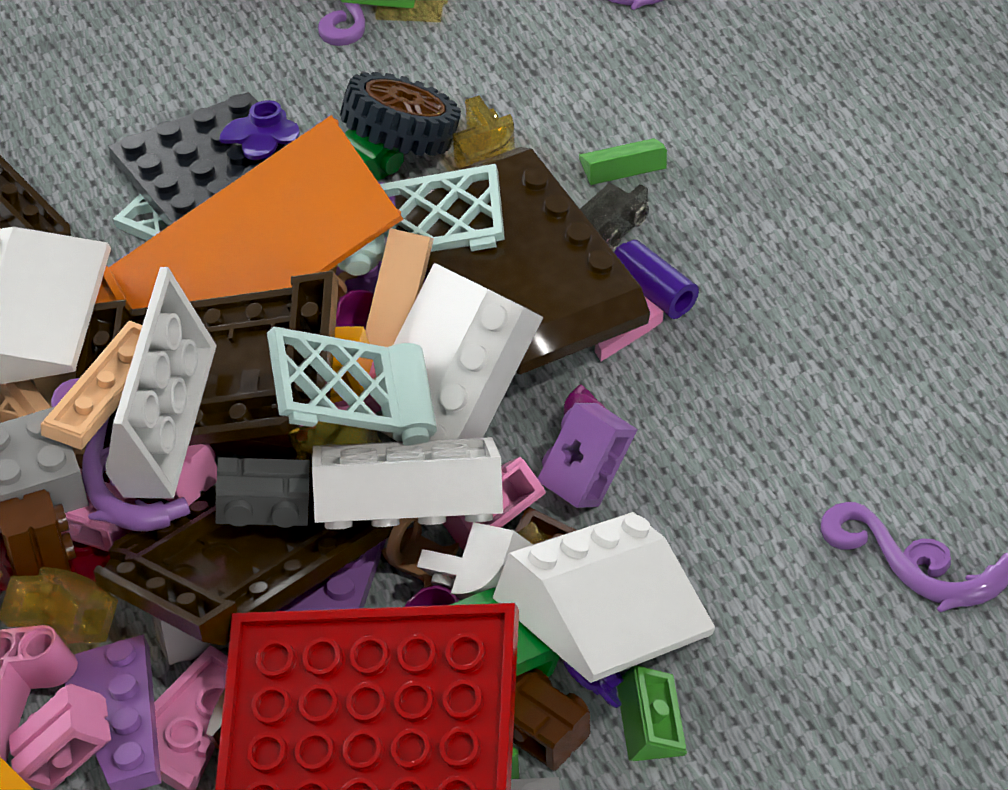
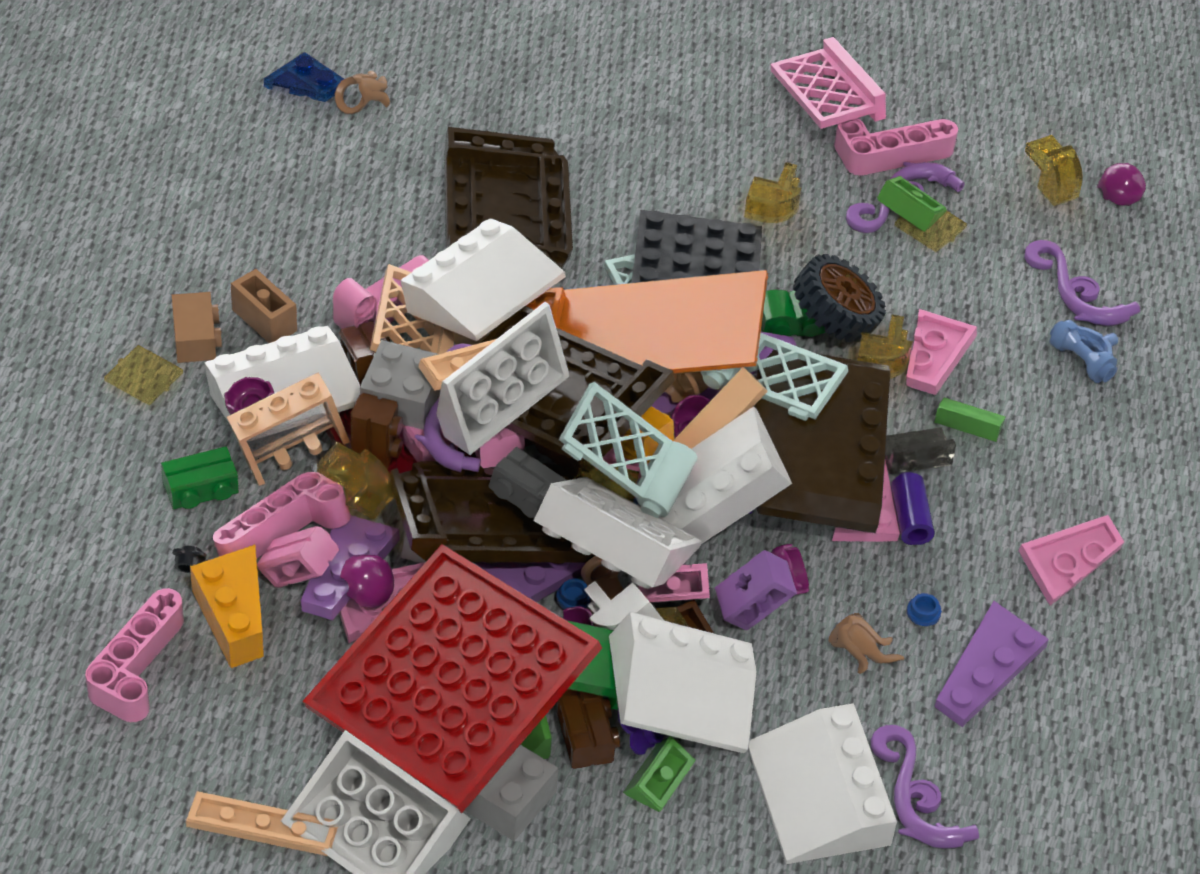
camera: 30 degrees right, 0 degrees up
(167, 708) = (368, 580): none -> magenta hair
(238, 58) = (773, 200): none -> clear yellow brick
(261, 130) = (737, 256): dark purple plate -> none
(393, 584) = (573, 594): none -> blue plate
(535, 108) = (937, 350): none -> bright pink wing
(674, 24) = (1083, 341): none -> medium blue piece
(726, 440) = (860, 640): none -> medium nougat piece
(755, 372) = (924, 610): none -> blue plate
(828, 613) = (823, 786): none -> white slope
(841, 233) = (1070, 555): none -> bright pink wing
(863, 385) = (990, 661): none -> medium lavender wing

